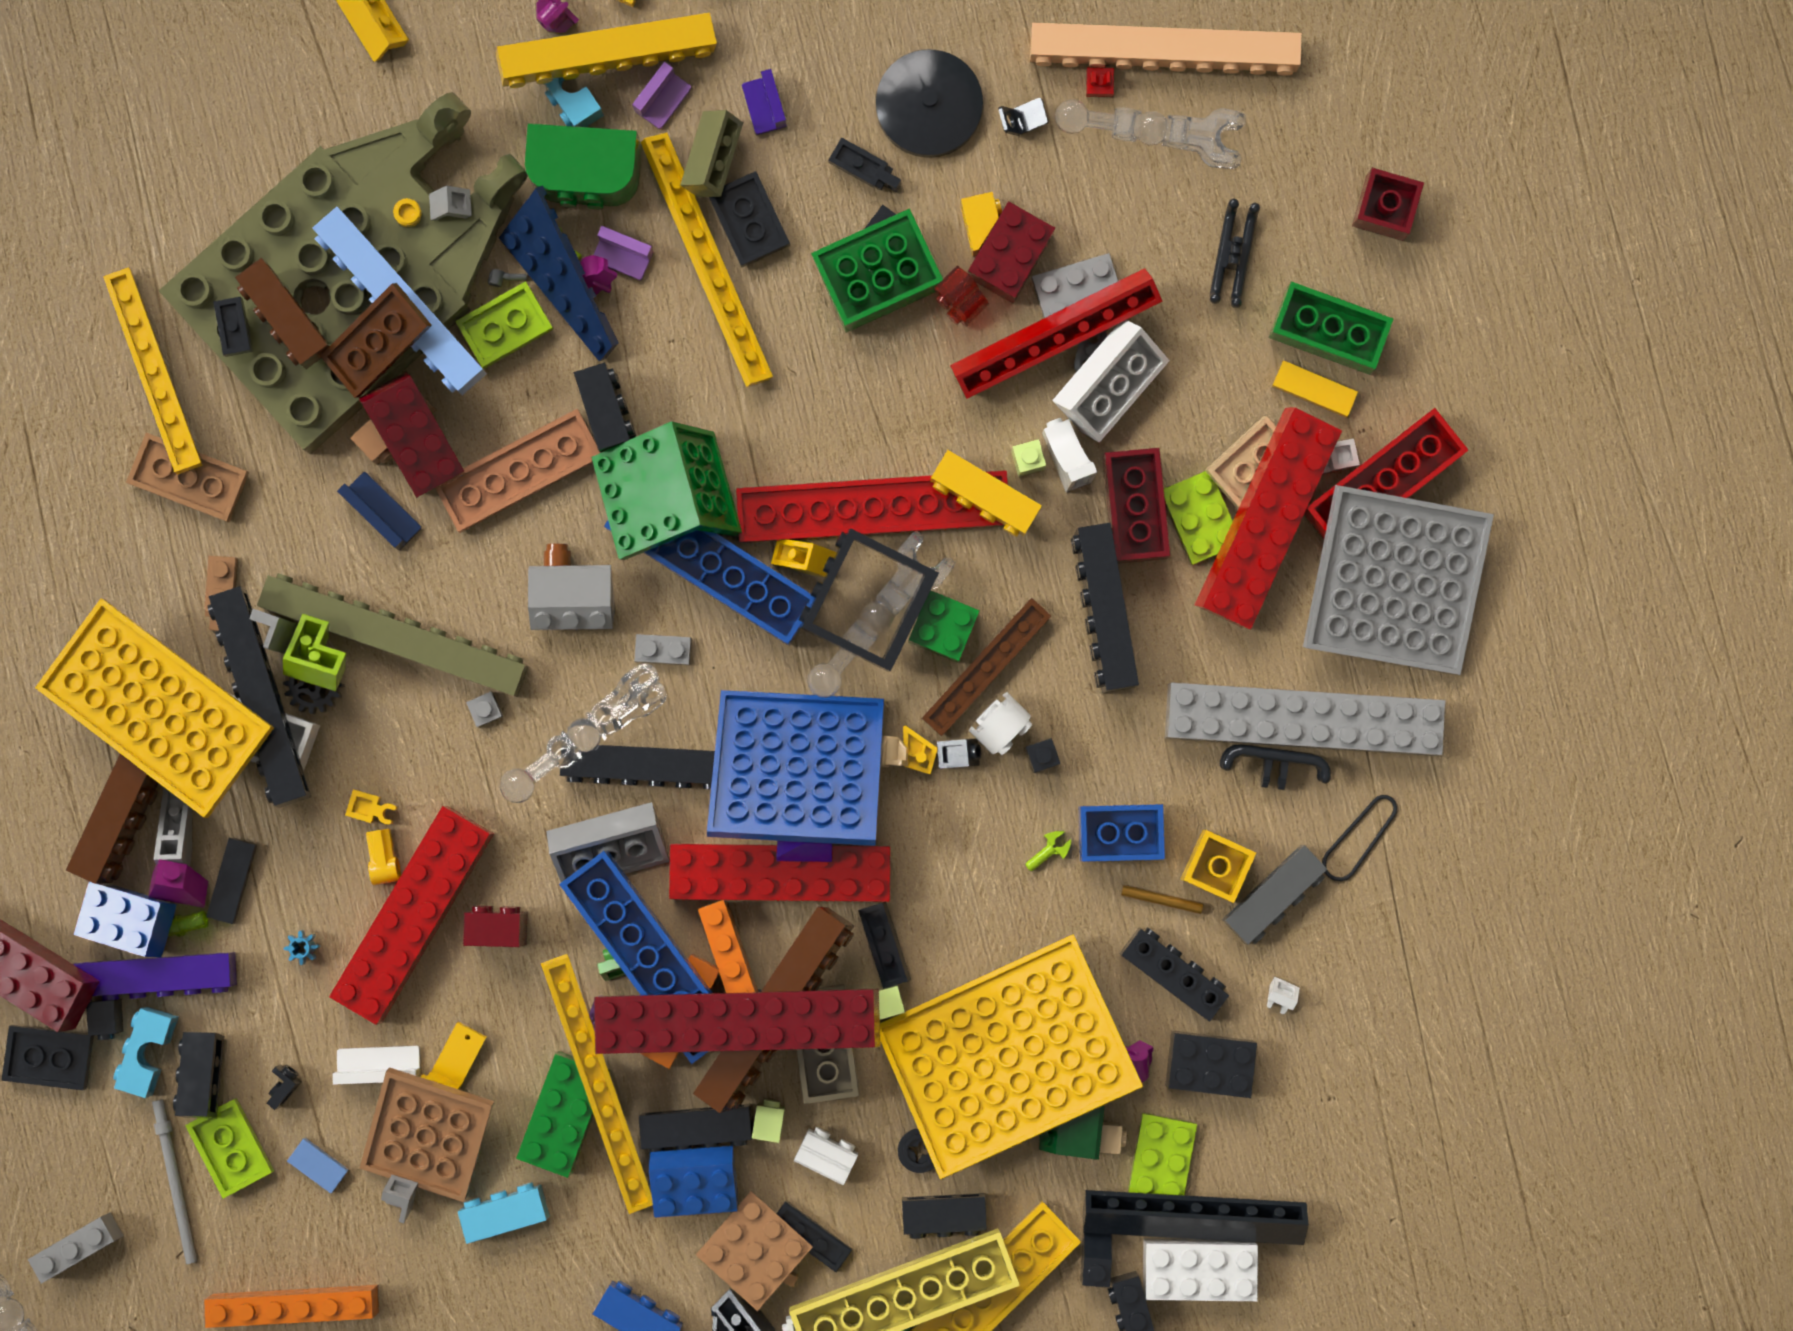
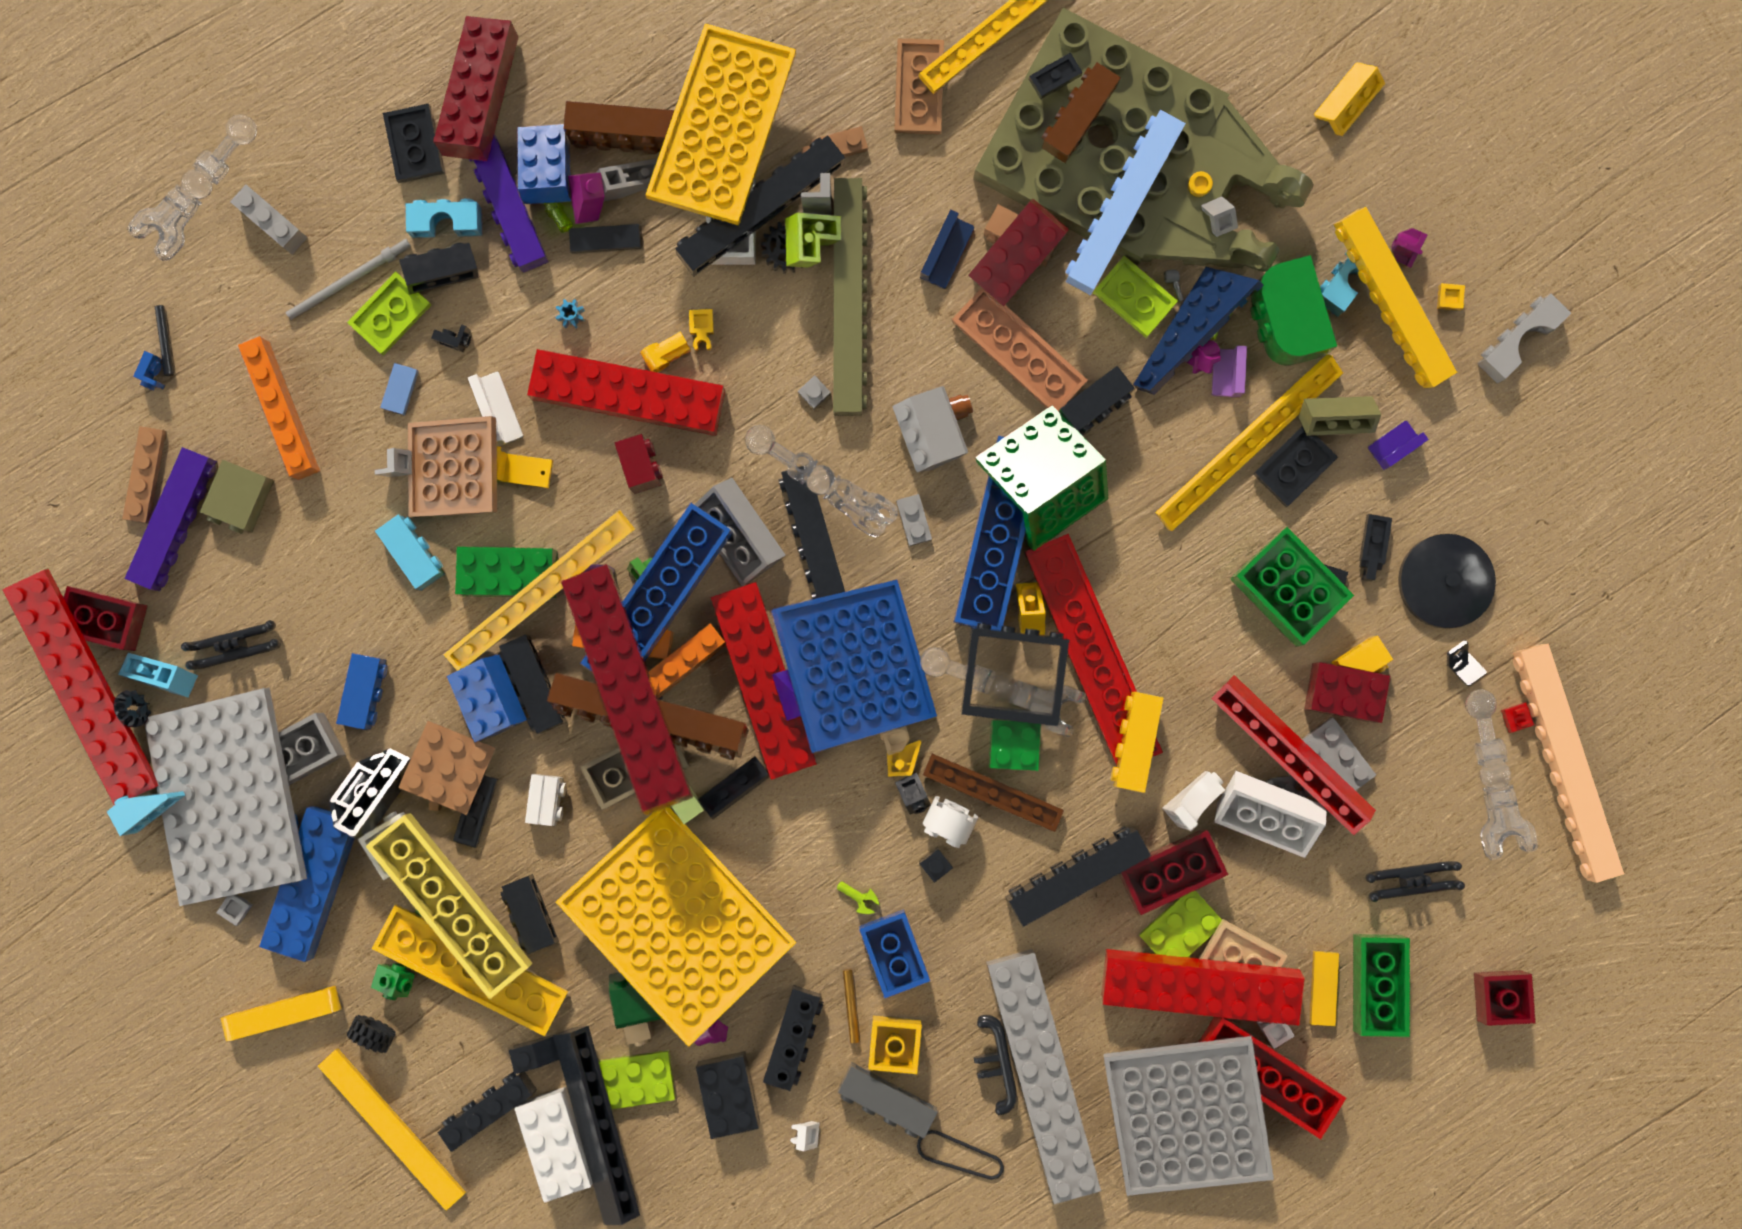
camera: 70 degrees right, 0 degrees up
(105, 1018) = (459, 177): black brick -> none
(375, 340) = (1086, 194): reddish brown plate -> none
(661, 96) = (1371, 357): medium lavender panel -> none
(768, 1121) = (557, 742): yellowish green brick -> none
(907, 1156) = (567, 866): black gear -> none
(960, 297) = (1295, 664): clear red brick -> none
(1028, 458) = (1180, 767): yellowish green brick -> none

